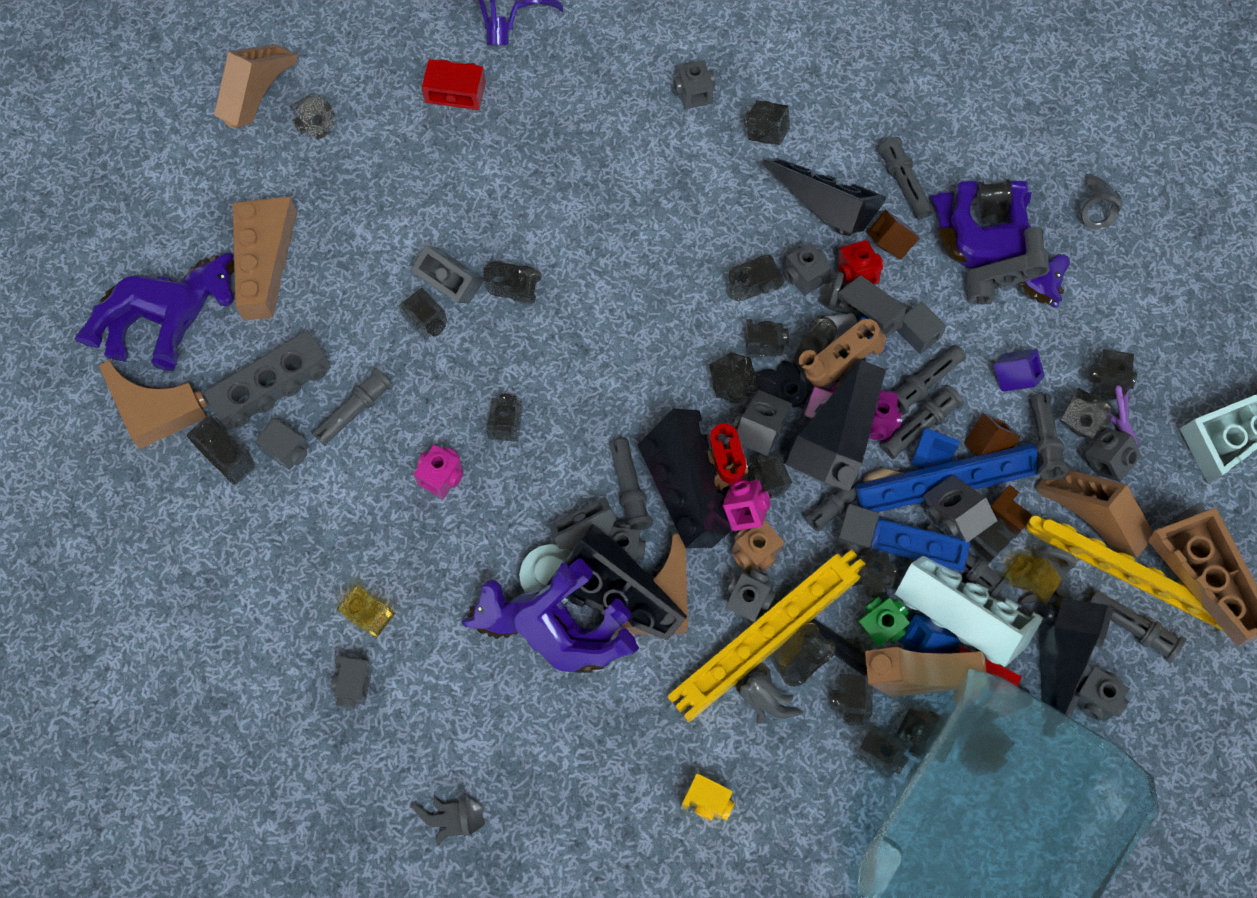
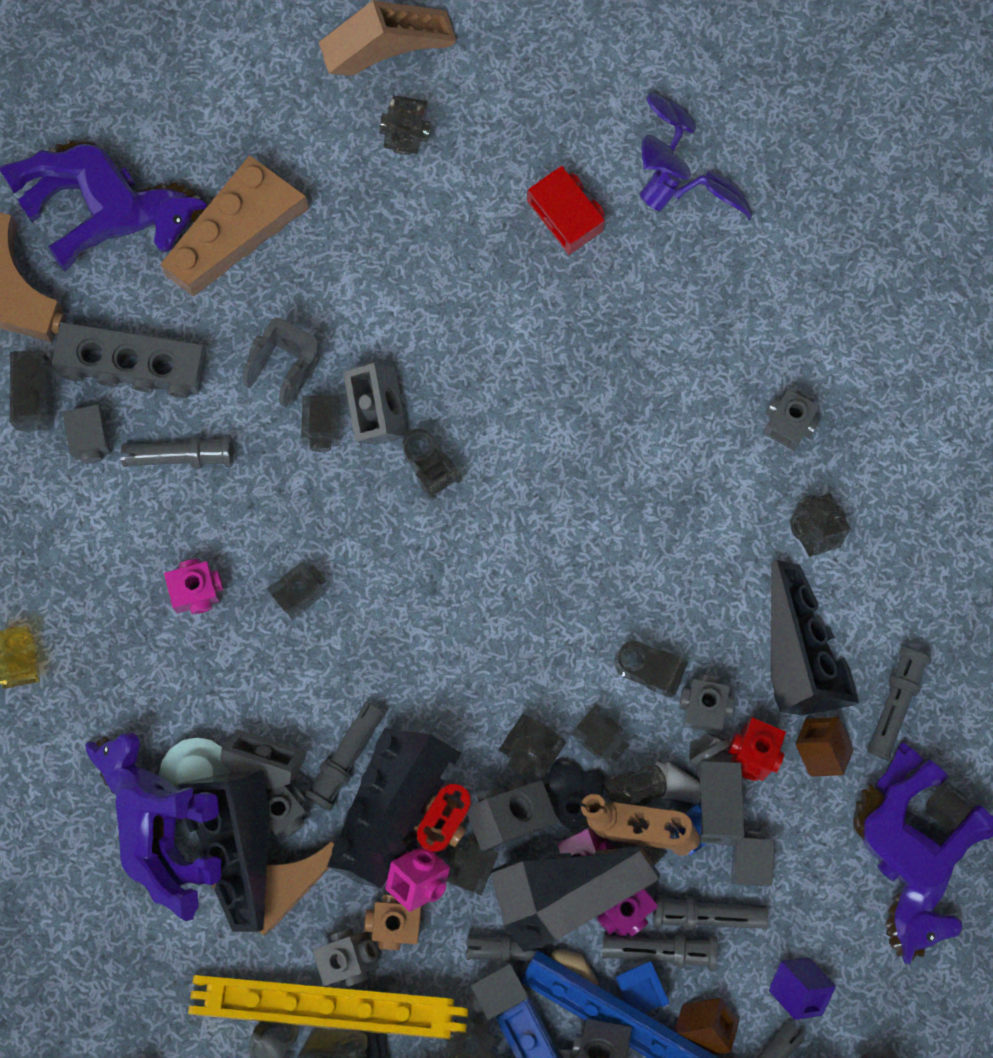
camera: 40 degrees right, 10 degrees up
(376, 286) = (292, 340): none -> dark grey piece
(1033, 264) = (913, 908): dark grey beam -> none

